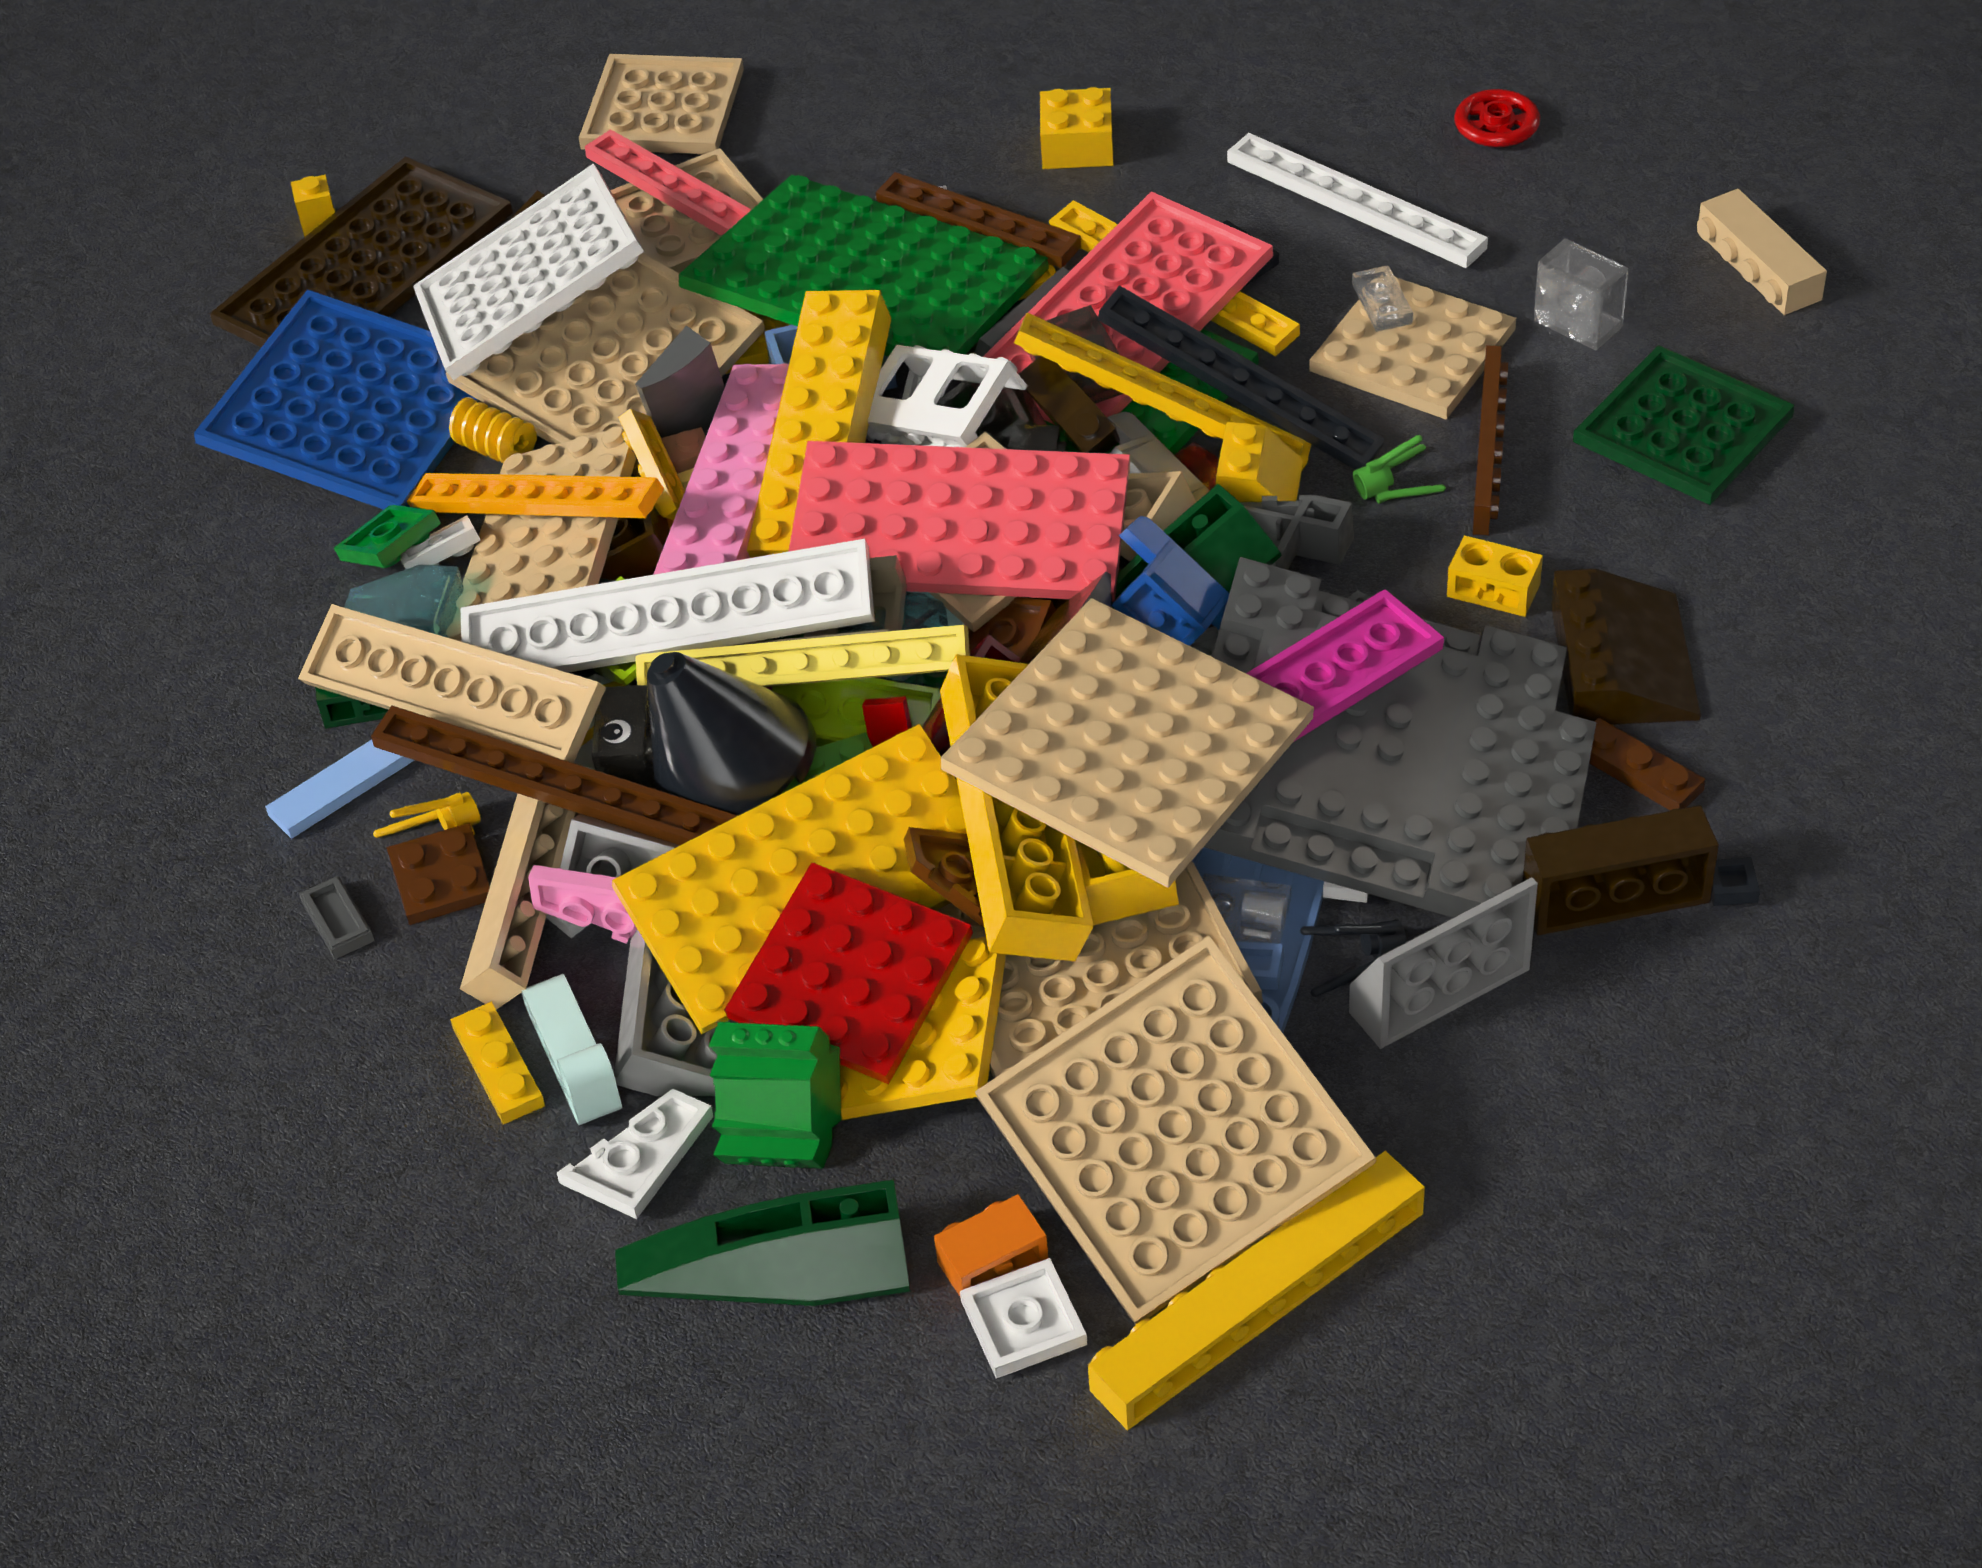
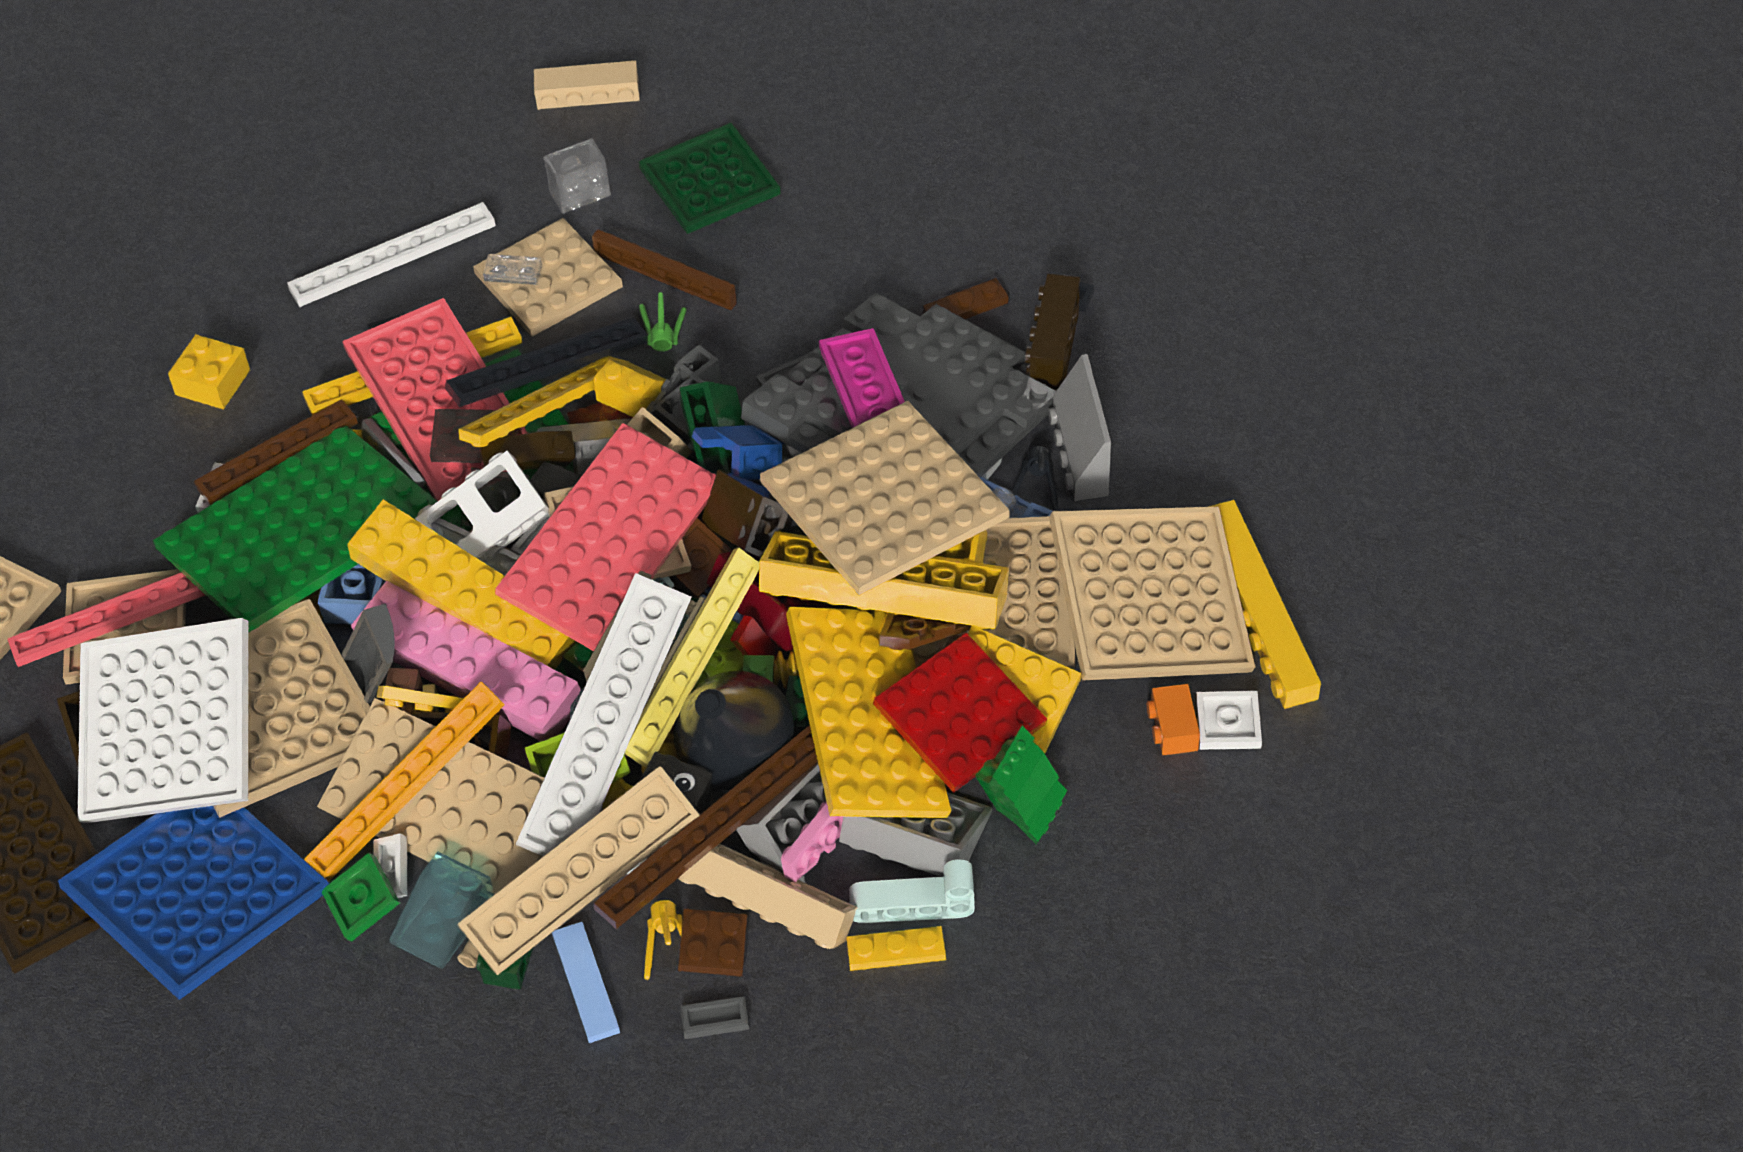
camera: 70 degrees left, 5 degrees up
(490, 431) = (289, 805): yellow piece -> none
(640, 1158) = (1017, 883): white wing -> none
(777, 1251) = (1132, 828): dark green wedge -> none
(1494, 576) = (783, 308): yellow brick -> none
(1496, 116) = (364, 157): red plate -> none
(1623, 649) = (857, 270): dark brown slope -> none

